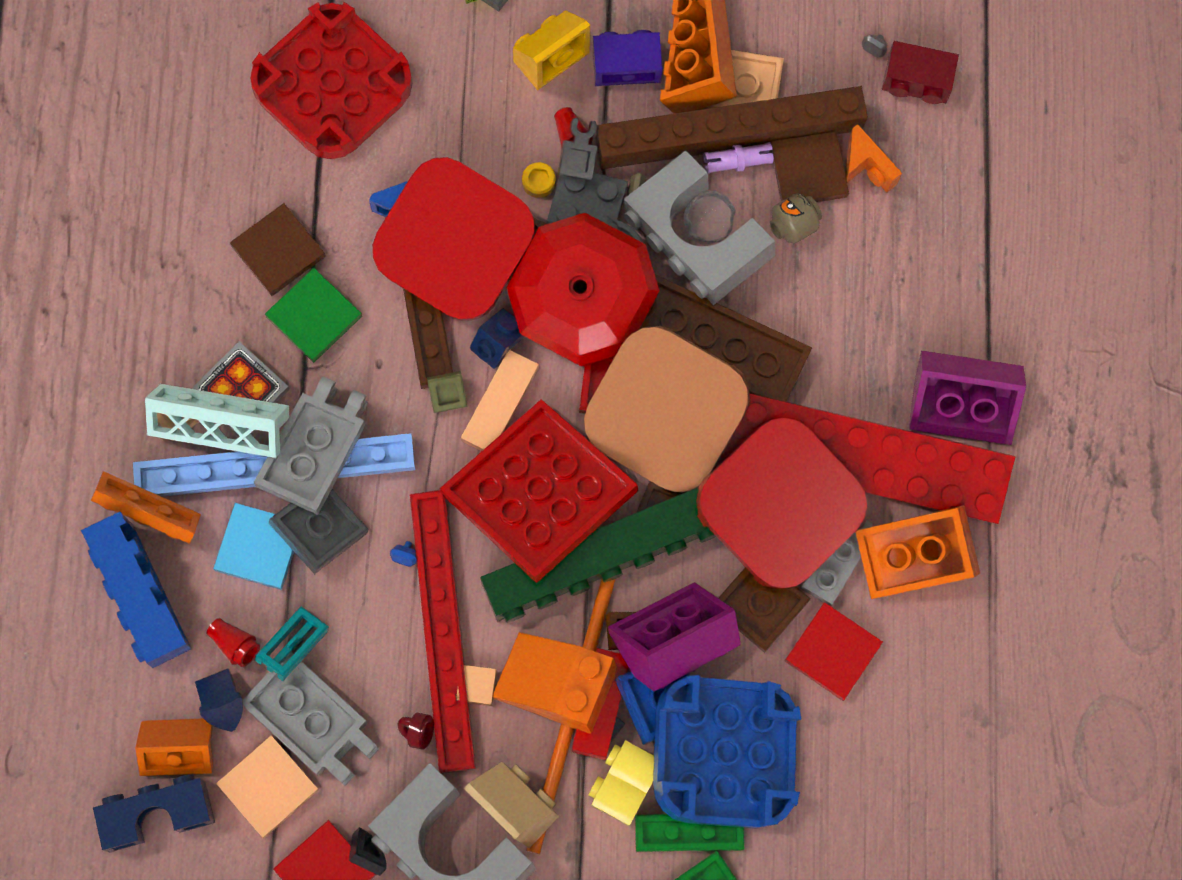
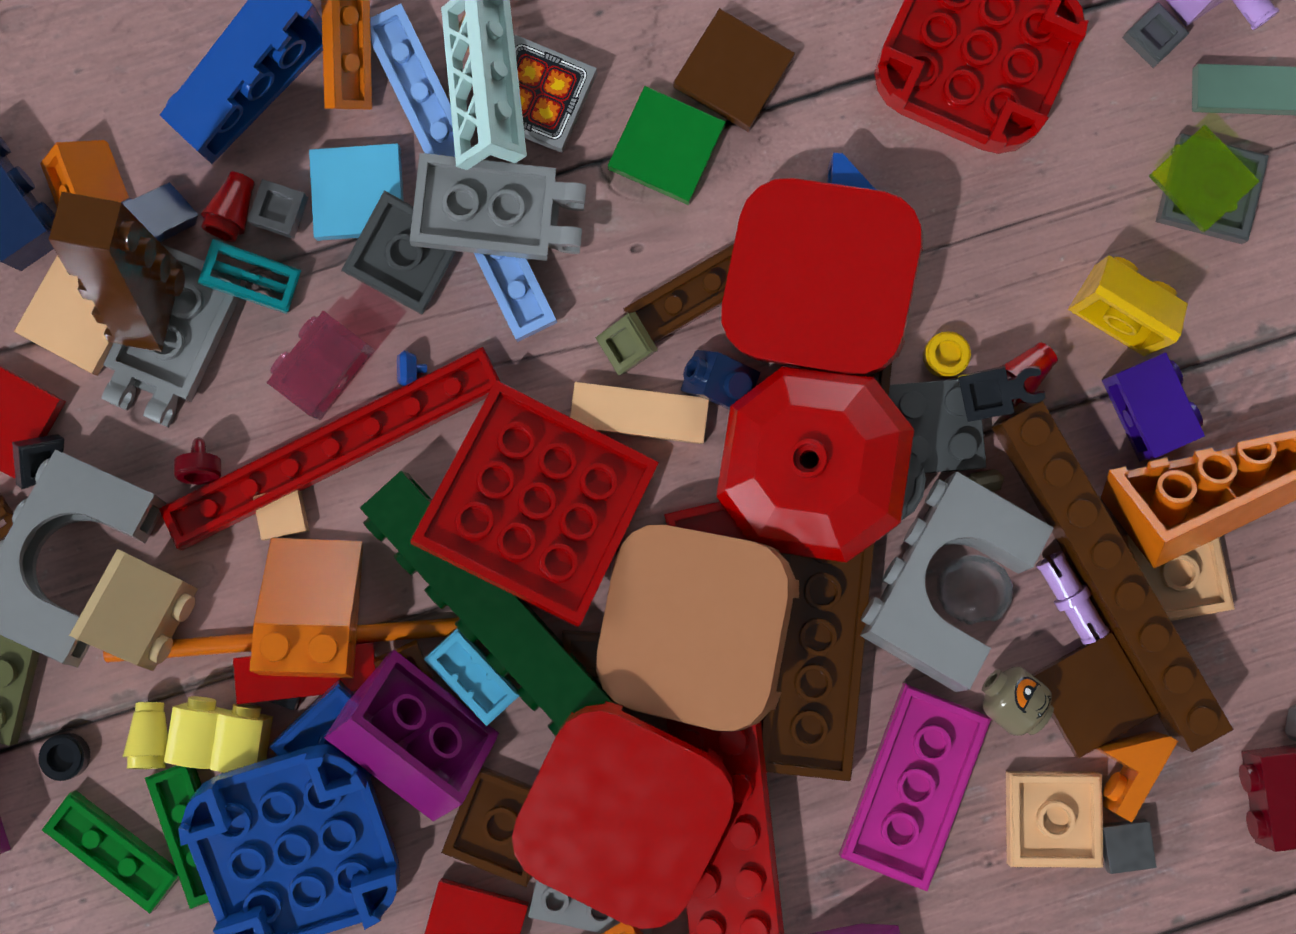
camera: 80 degrees right, 10 degrees up
(248, 606) = (277, 208): none -> flat silver plate
(264, 711) = (118, 269): none -> reddish brown wedge
(378, 613) = (319, 365): none -> clear pink brick
(607, 837) = (147, 737): none -> light yellow cone
(646, 583) = (471, 676): none -> medium azure plate
(831, 308) = (915, 787): none -> dark pink tile
(885, 225) = (1054, 819): none -> light nougat tile
(919, 184) = (1128, 846): none -> flat silver tile

